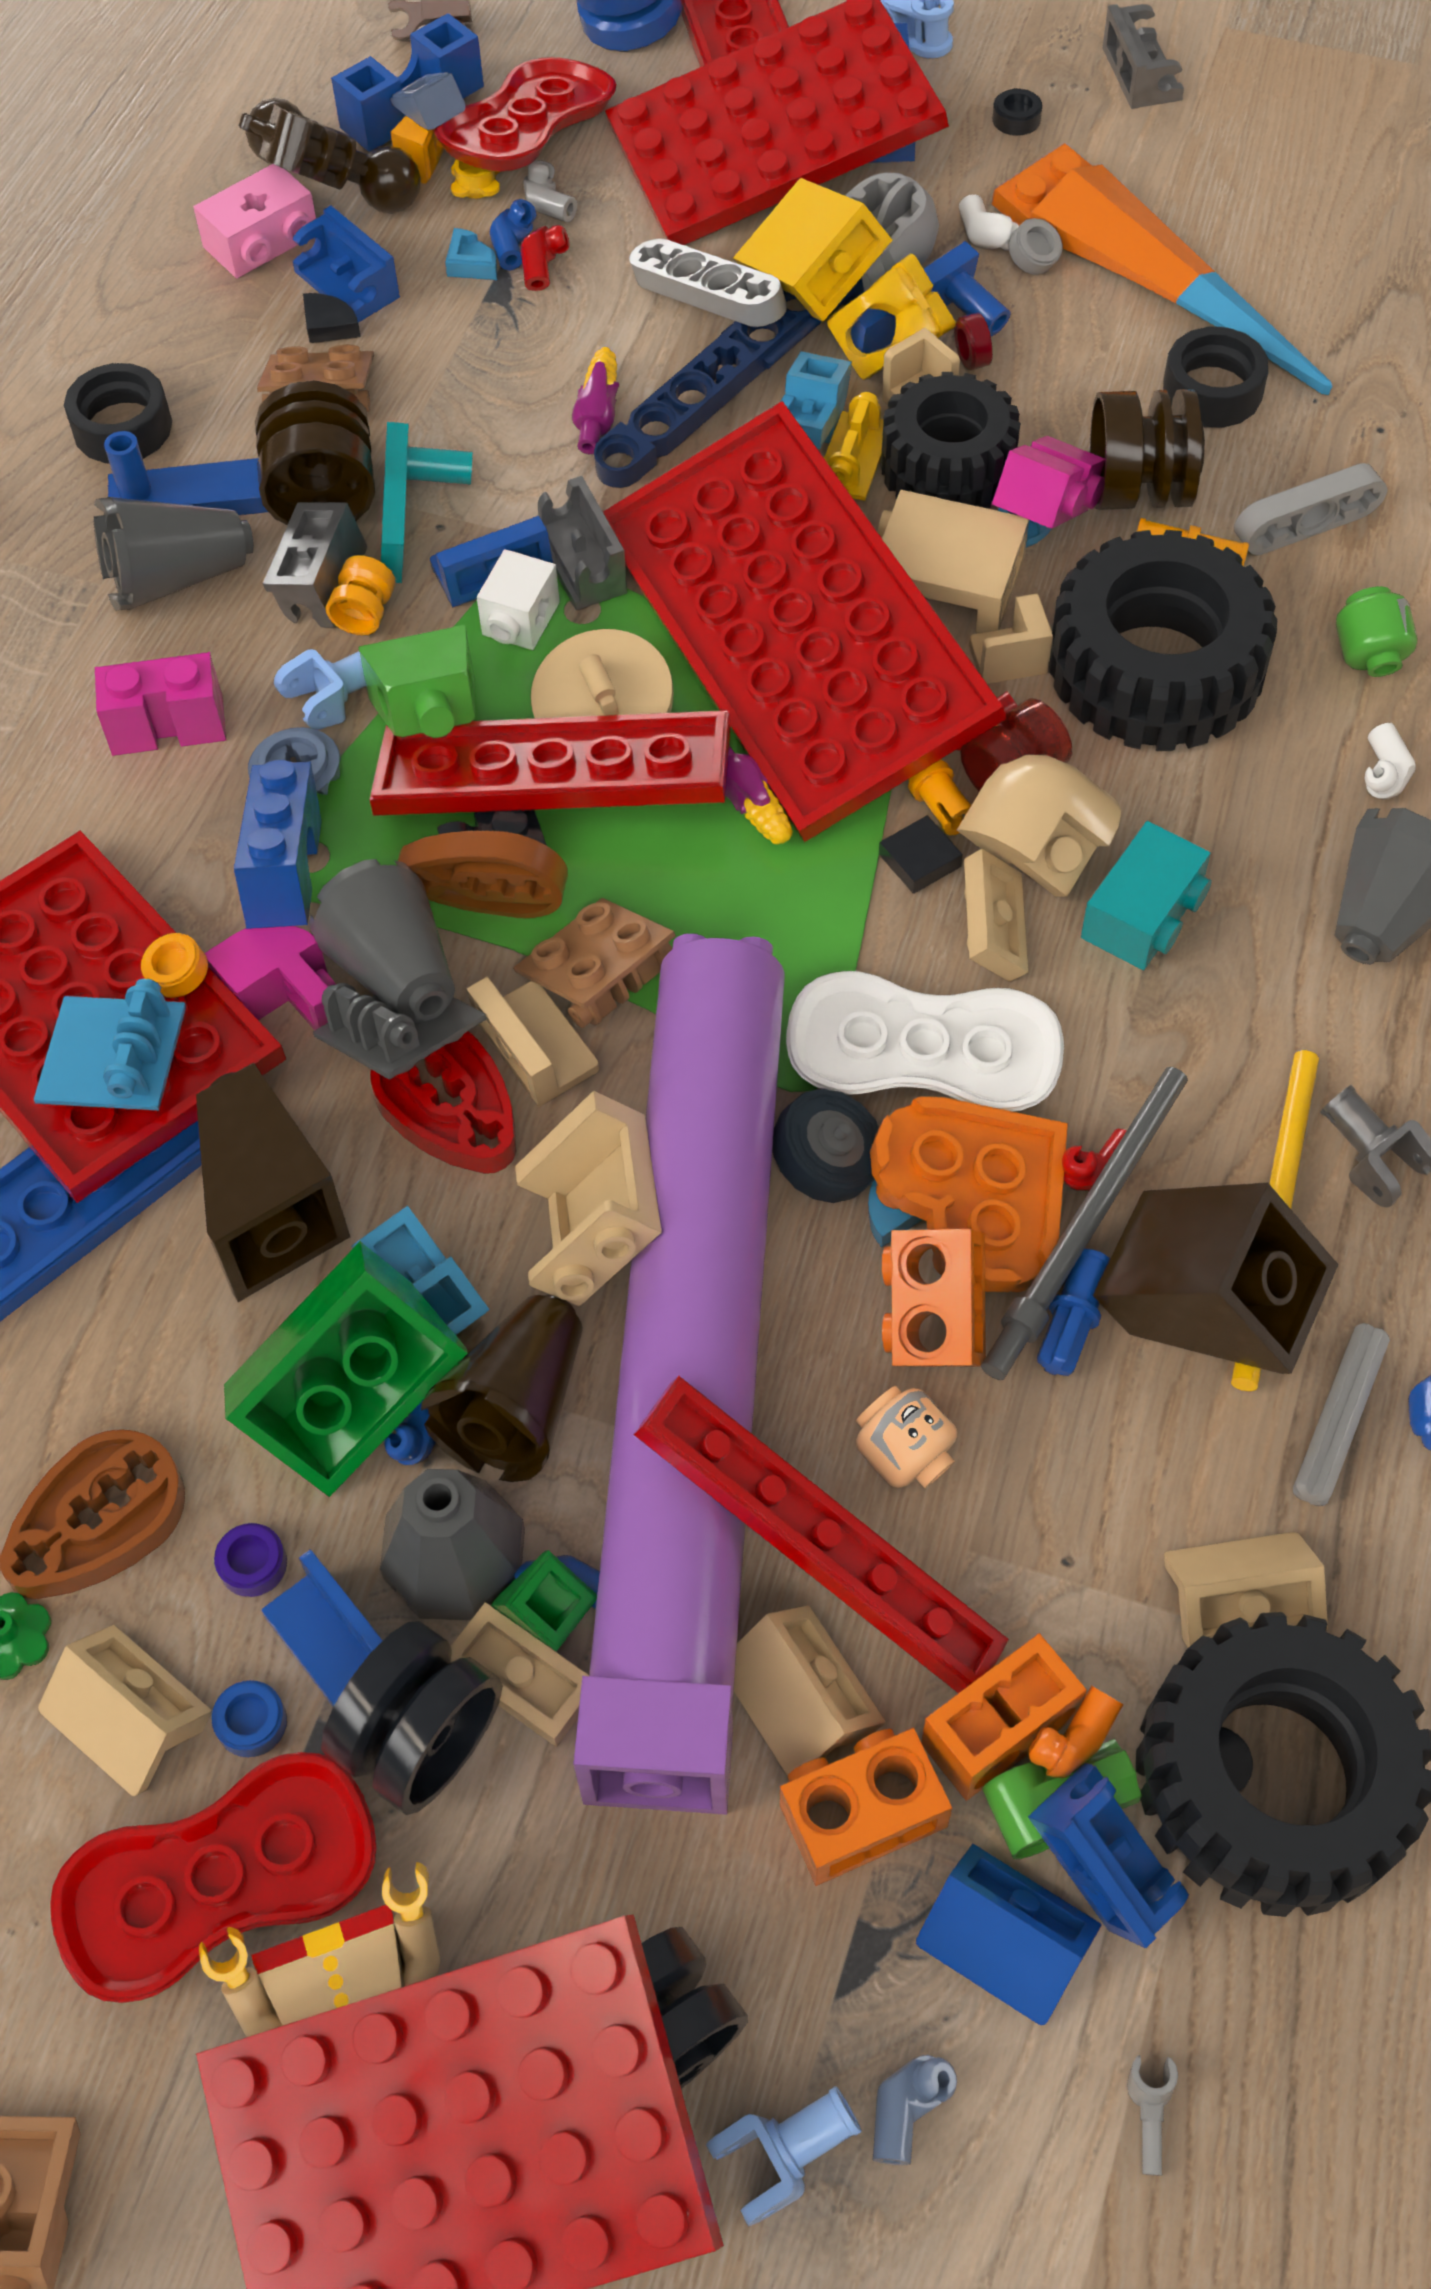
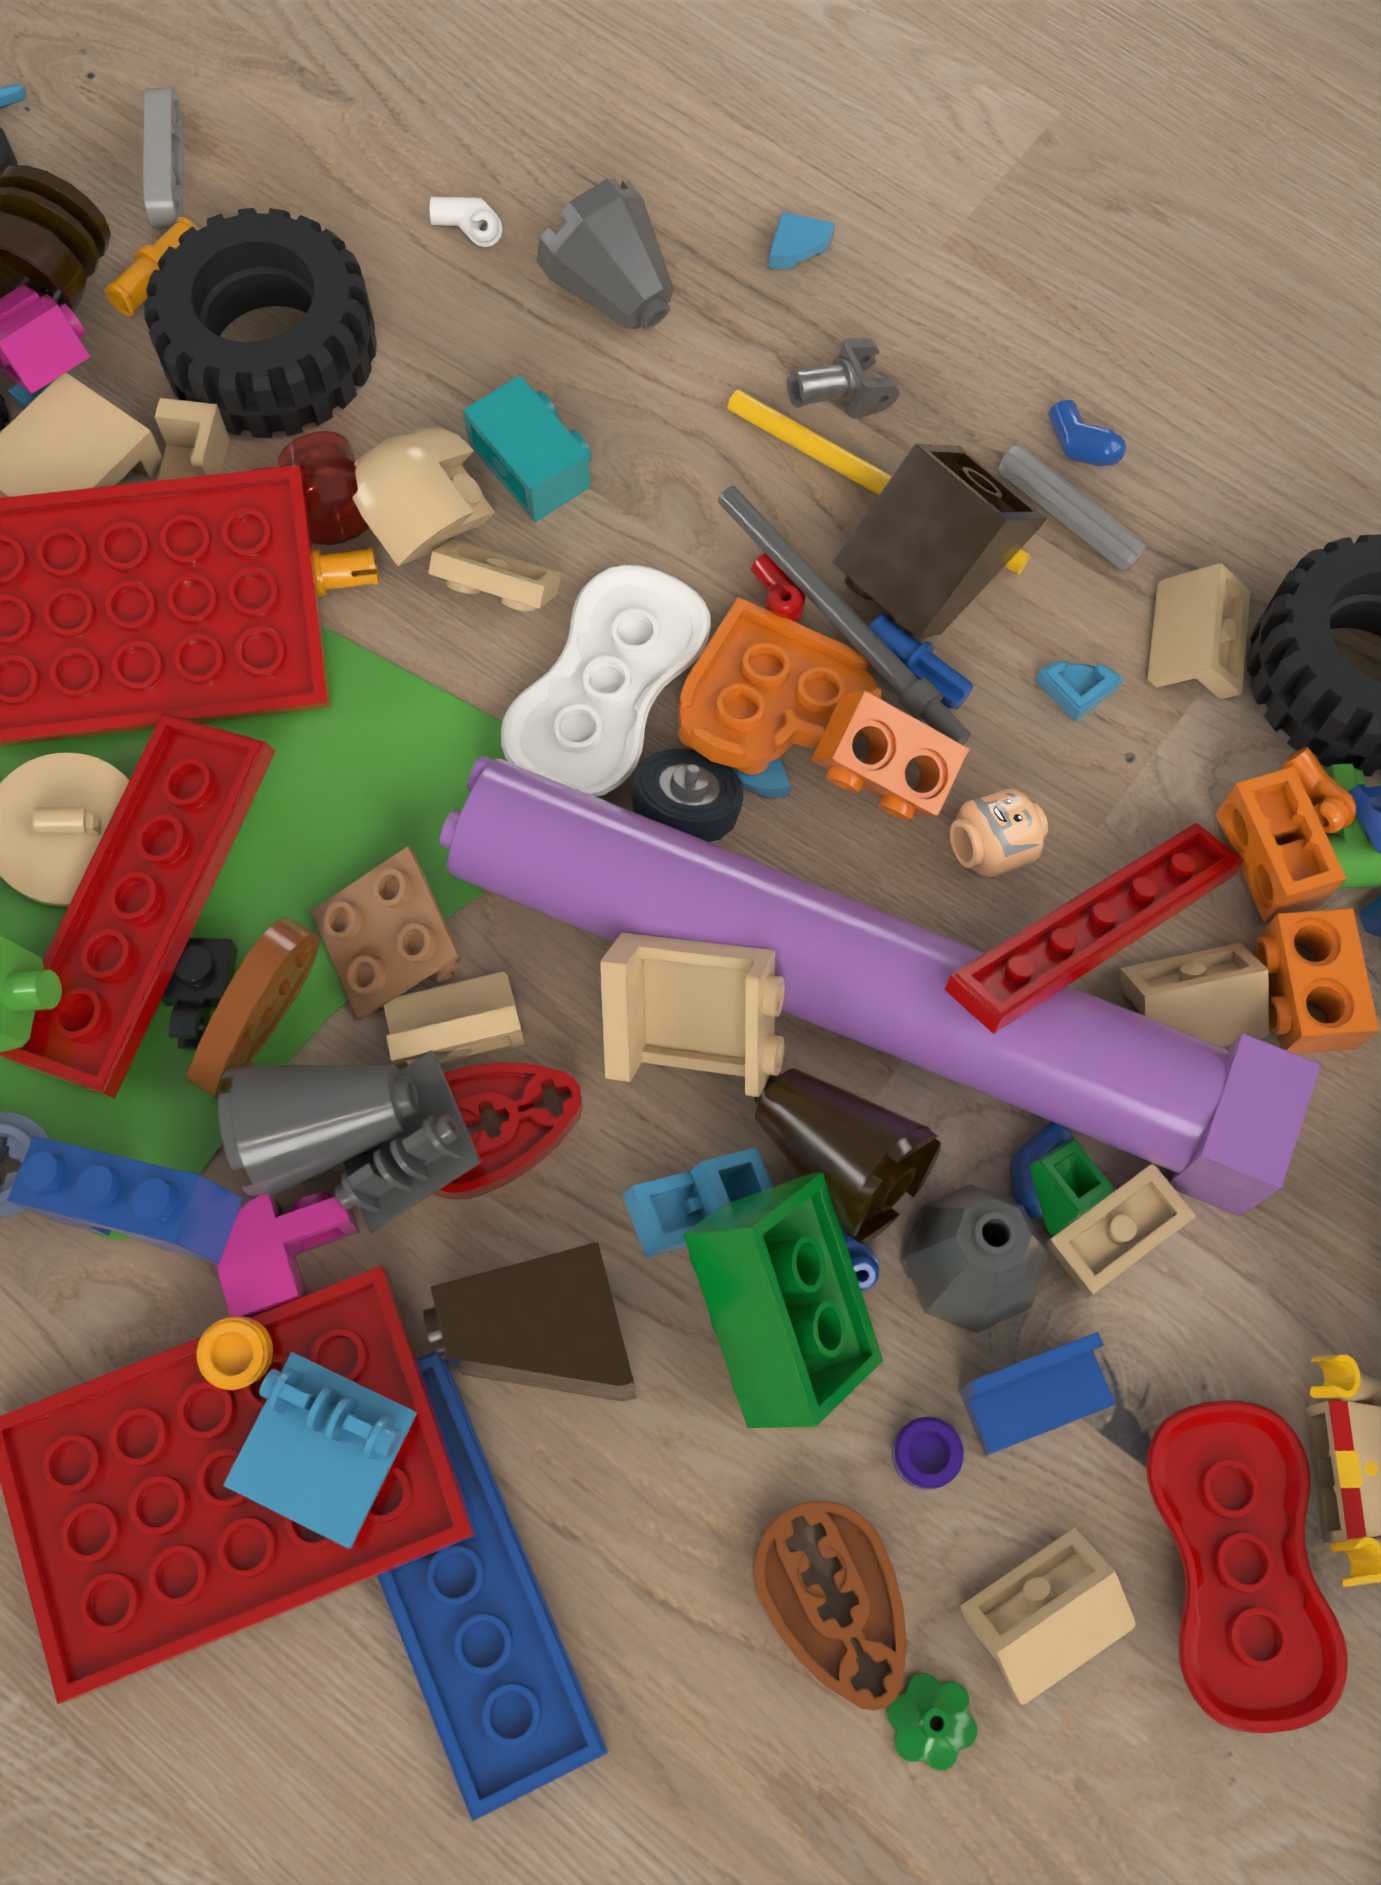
camera: 75 degrees left, 10 degrees up
(249, 1718) = (1088, 1495): blue tile -> none
(411, 1716) = (1165, 1330): black wheel -> none
(754, 798) = (275, 727): piece -> none
(920, 854) = (391, 614): black tile -> none
(1125, 1482) = (1078, 686): none -> dark azure tile
(1376, 631) = (329, 164): bright green head -> none

